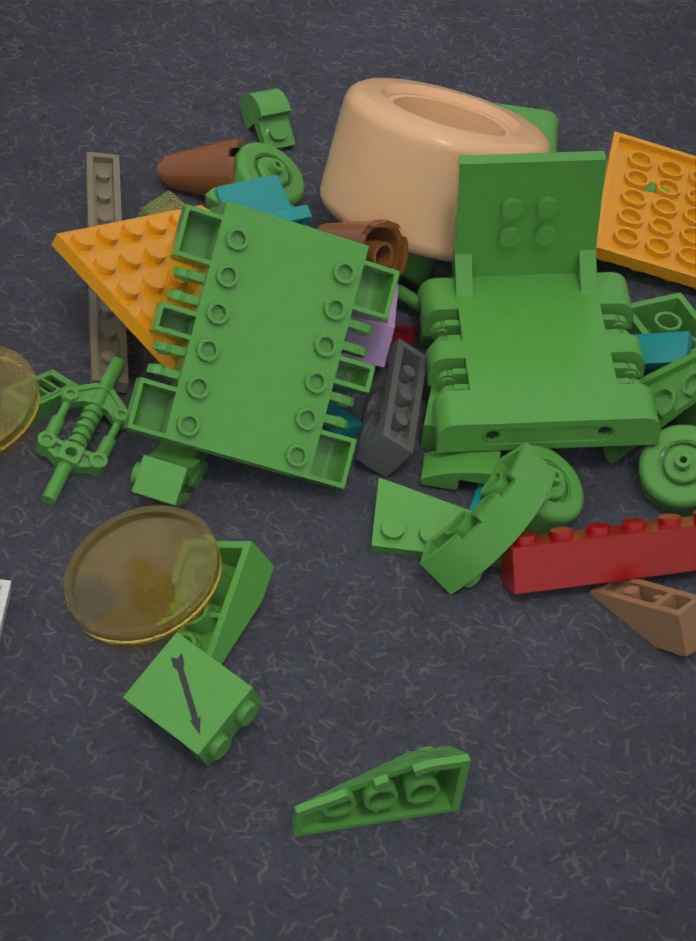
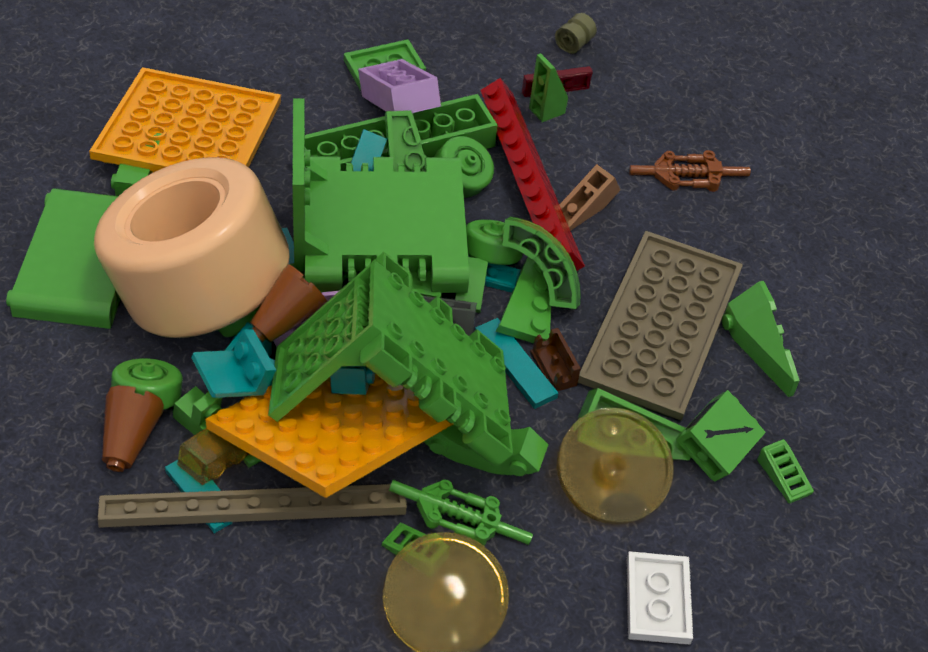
camera: 90 degrees left, 5 degrees up
(147, 802) = (777, 455): none -> bright green slope
(268, 114) = (37, 380): bright green brick -> none
(322, 514) = (520, 367): none -> teal tile
(332, 550) = (556, 360): none -> reddish brown hinge
(422, 680) = (661, 325): none -> dark tan plate

